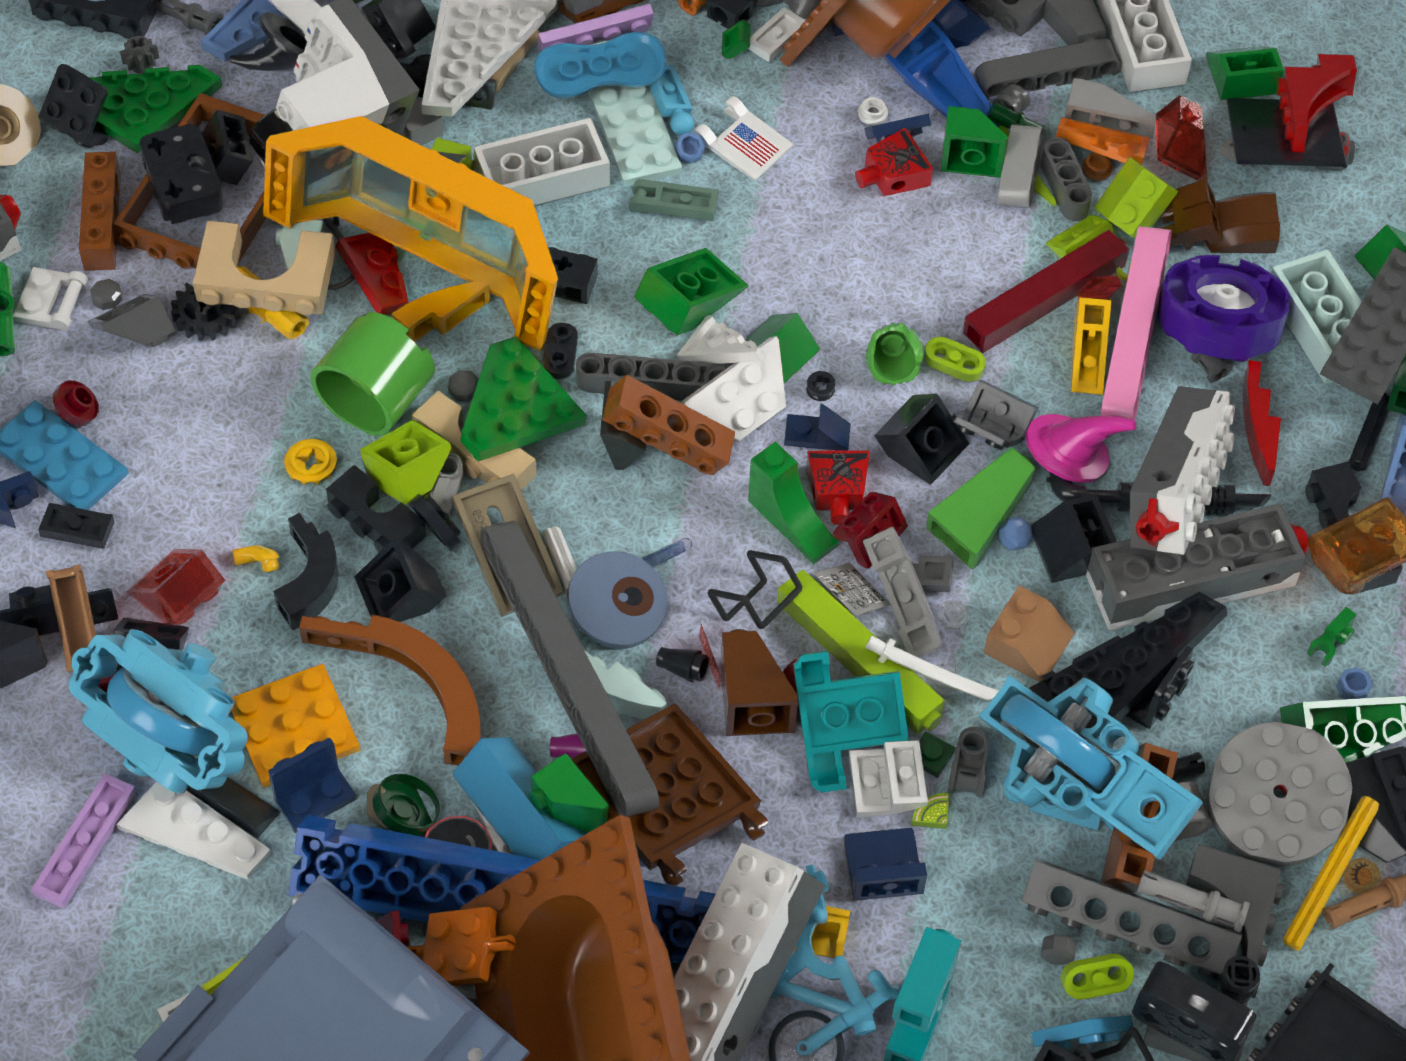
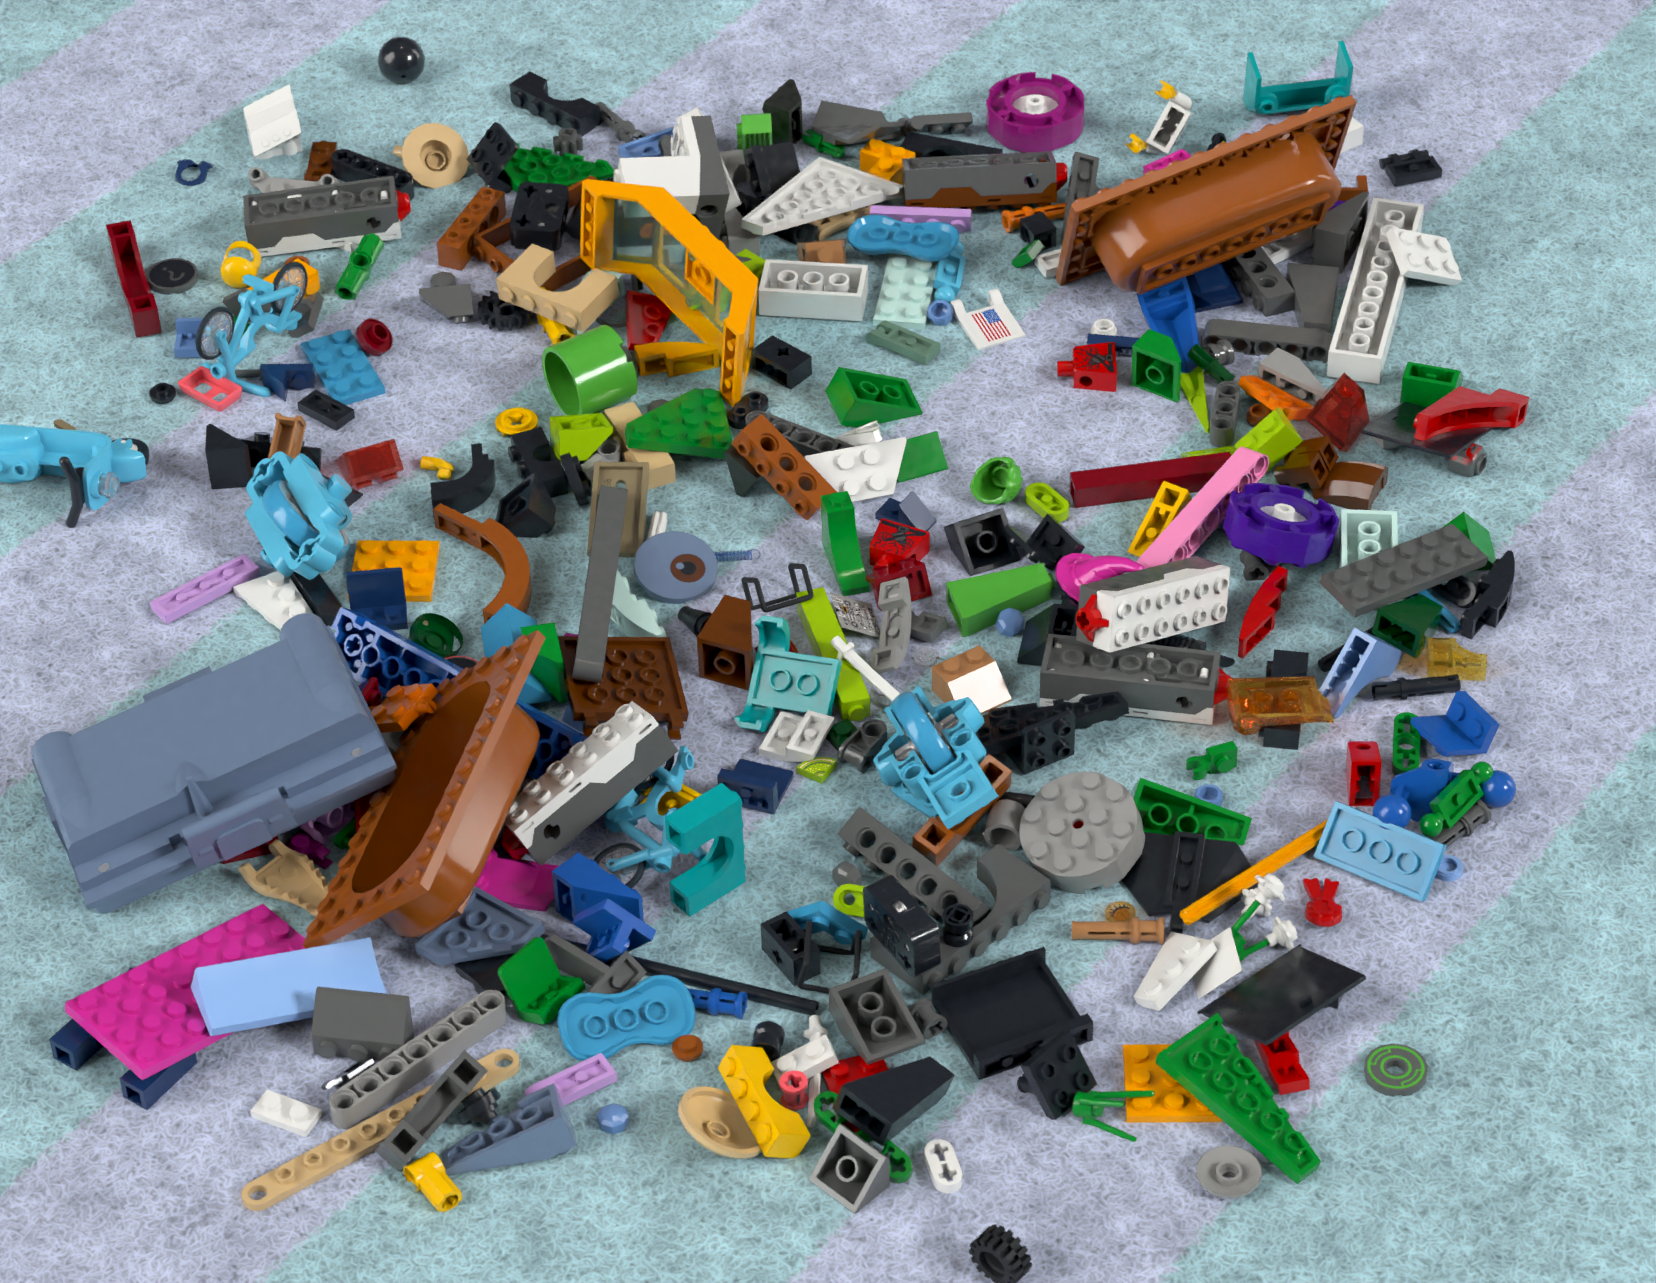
camera: 30 degrees right, 15 degrees down
(41, 294) = (397, 269): white plate -> none
(525, 111) = (823, 251): none -> medium nougat torso
(815, 393) = (929, 495): black bush -> none
(1020, 166) = (1191, 394): light grey beam -> none
(1099, 287) = (1193, 486): clear red tile -> none
(1209, 905) = (971, 875): light grey pin -> none
(1330, 873) = (1091, 898): yellow axle -> none

